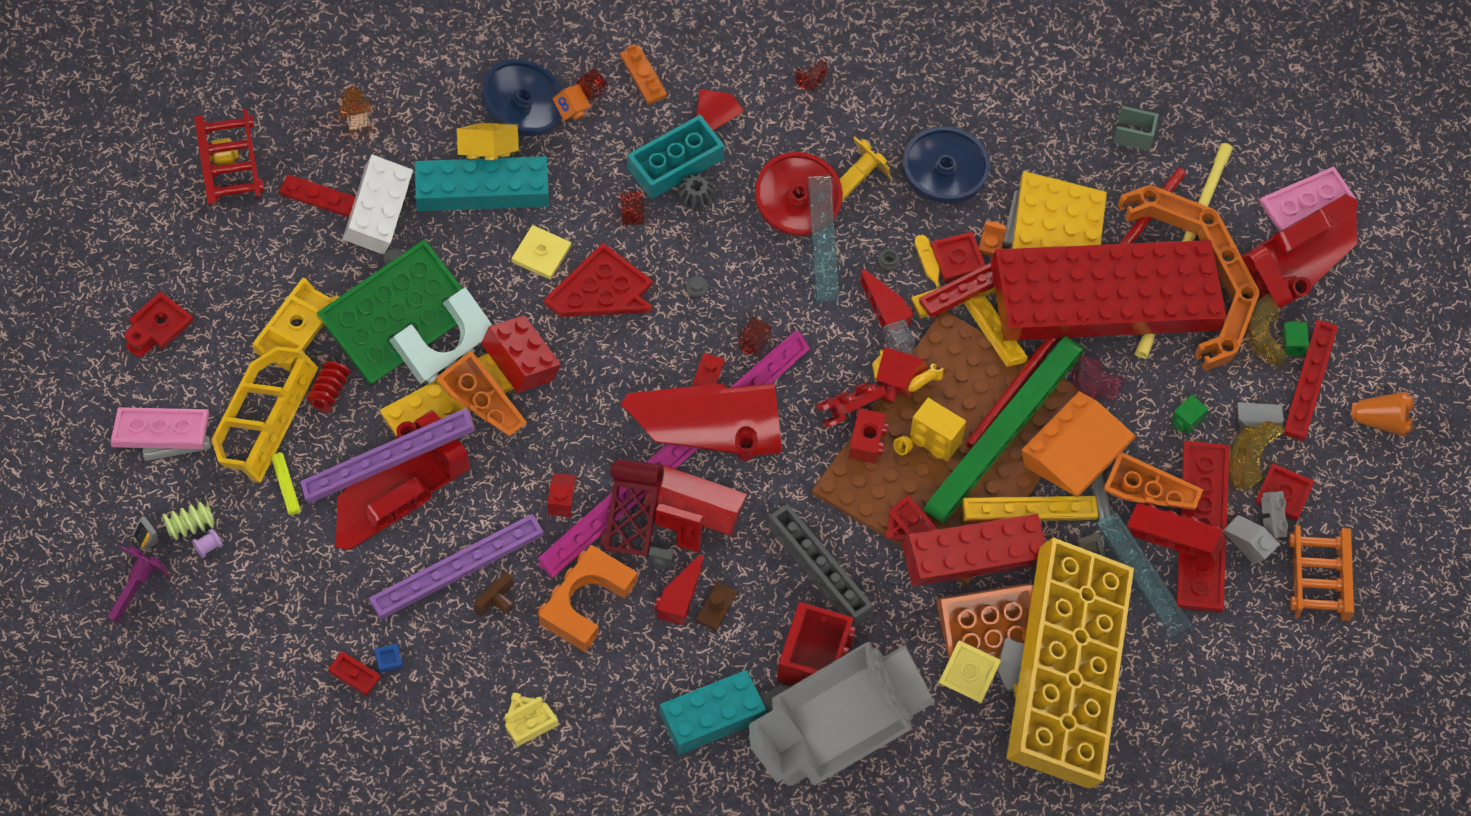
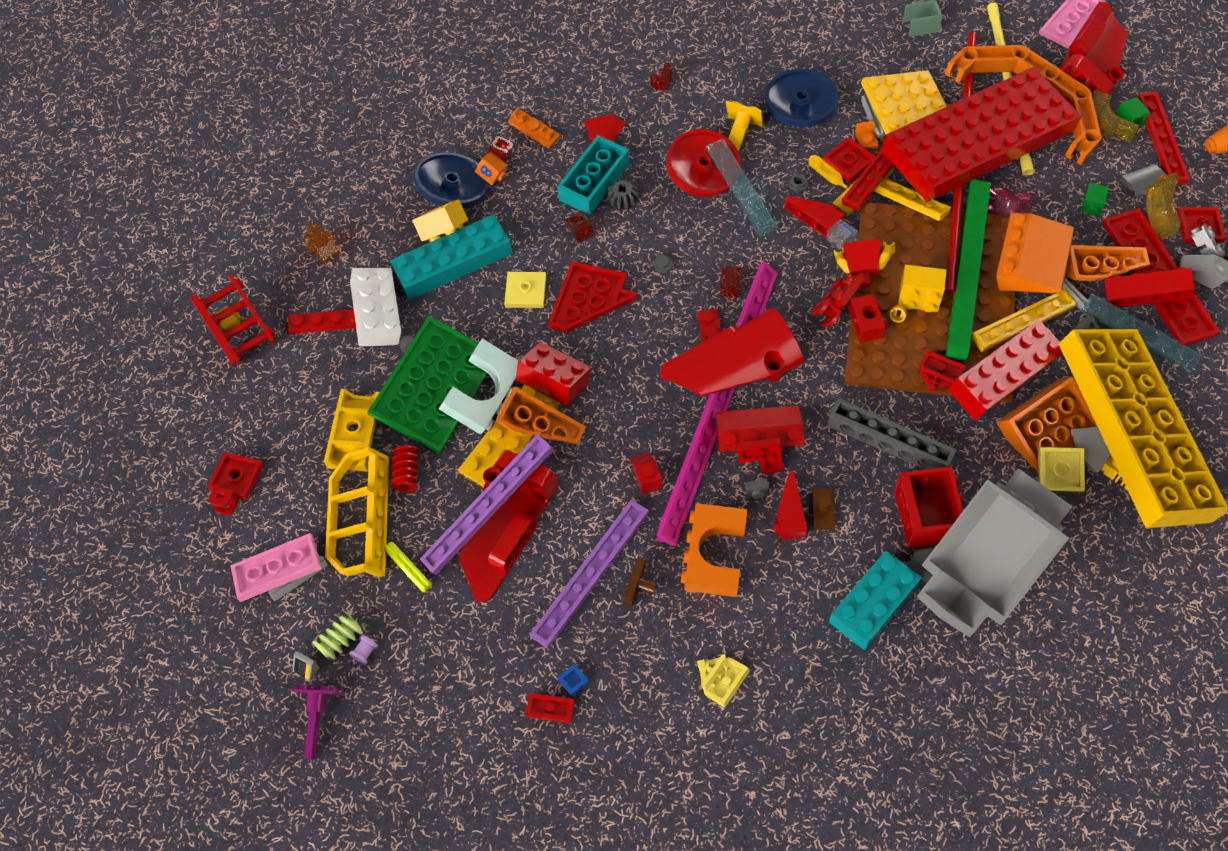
camera: 15 degrees left, 0 degrees up
(633, 476) = (705, 429): dark red piece -> none

